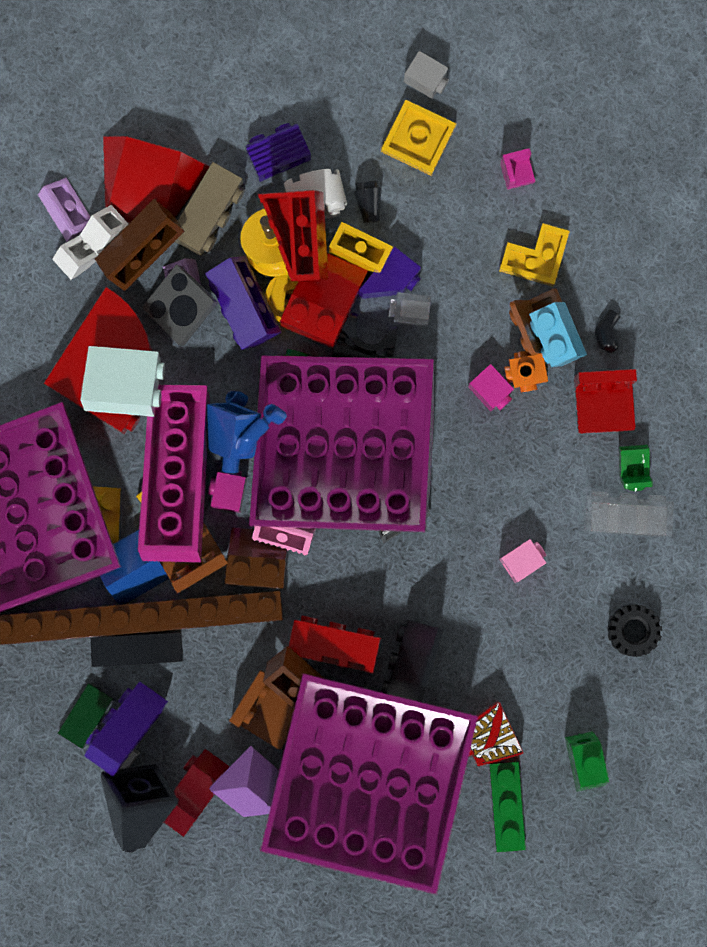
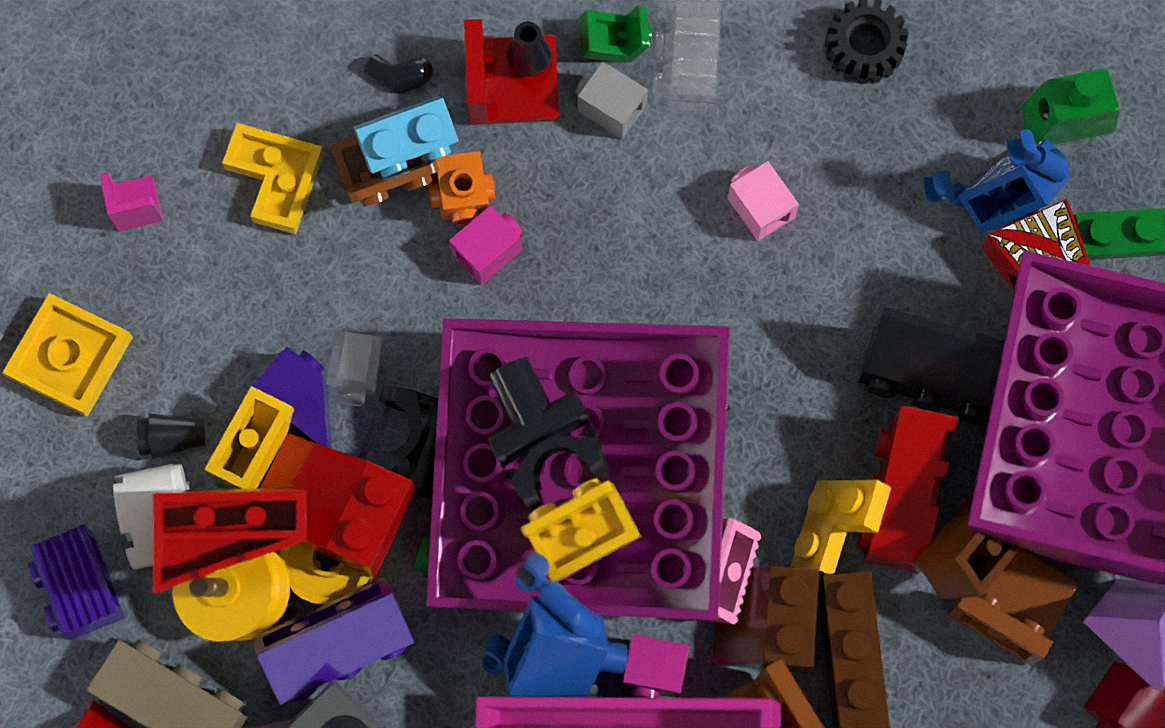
camera: 85 degrees left, 10 degrees down
(300, 444) = (581, 528): none -> yellow bracket
(321, 601) = (831, 513): none -> yellow plate
(360, 416) = (539, 430): none -> black connector
(530, 718) = (1011, 187): none -> blue torso
(590, 465) = (611, 99): none -> light grey brick
(614, 417) = (528, 50): none -> black cone

